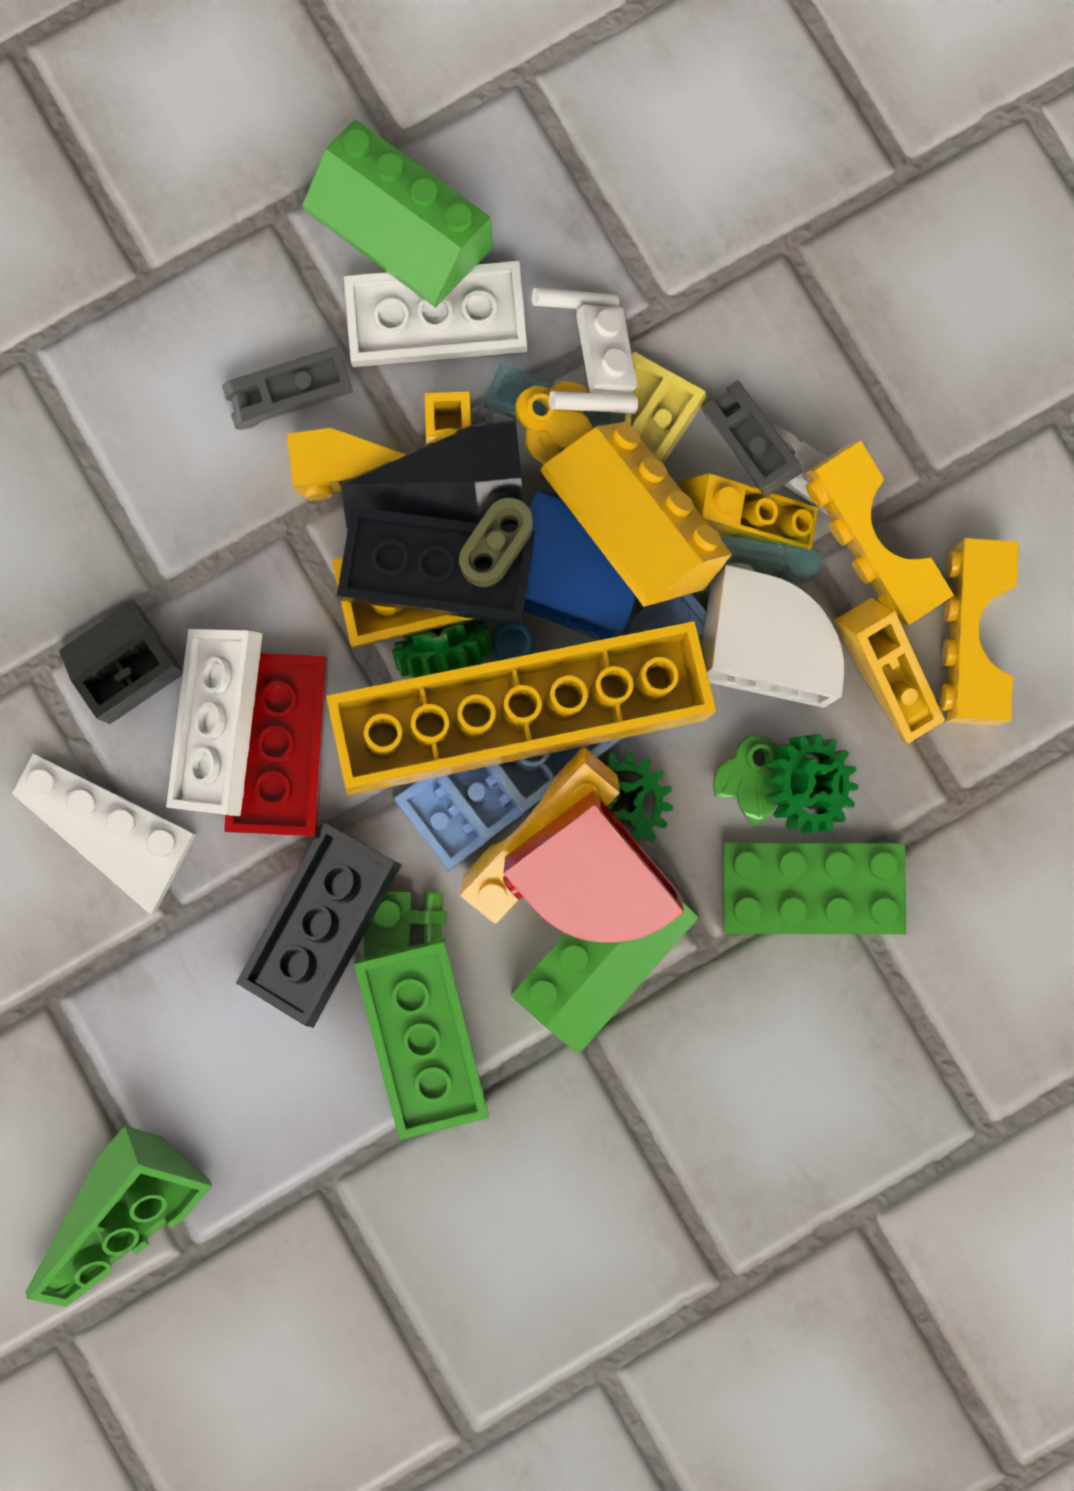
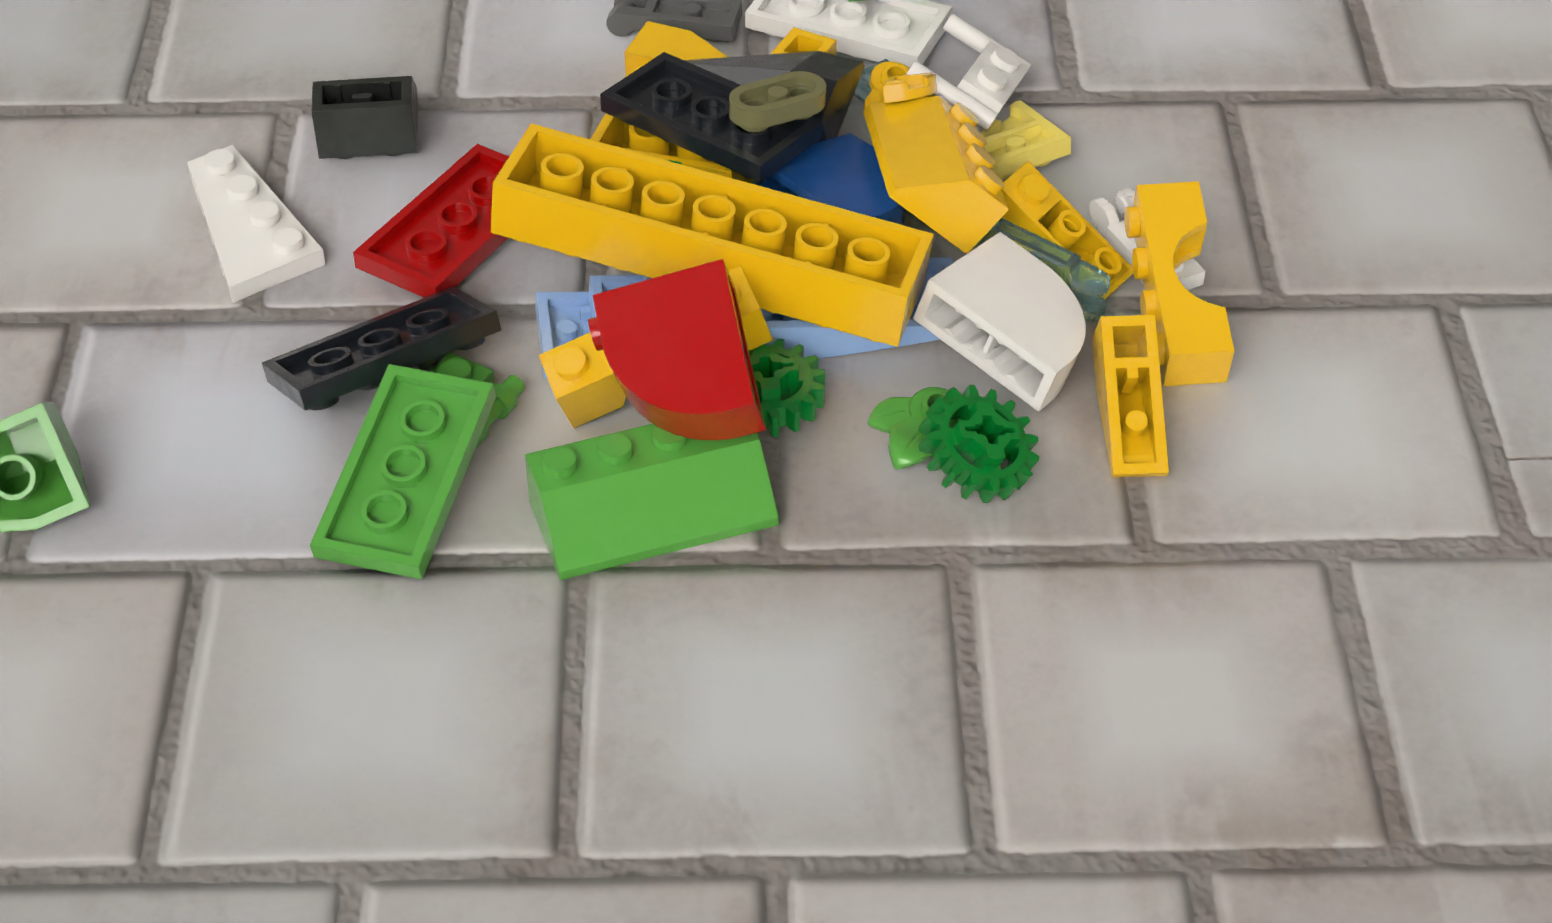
camera: 30 degrees right, 40 degrees down
(214, 721) = (412, 172): white plate -> none
(565, 429) = (909, 87): none -> yellow tile
(752, 439) = (1094, 179): dark grey plate -> none
(813, 888) = (925, 546): bright green plate -> none
(976, 687) = (1220, 445): yellow arch -> none

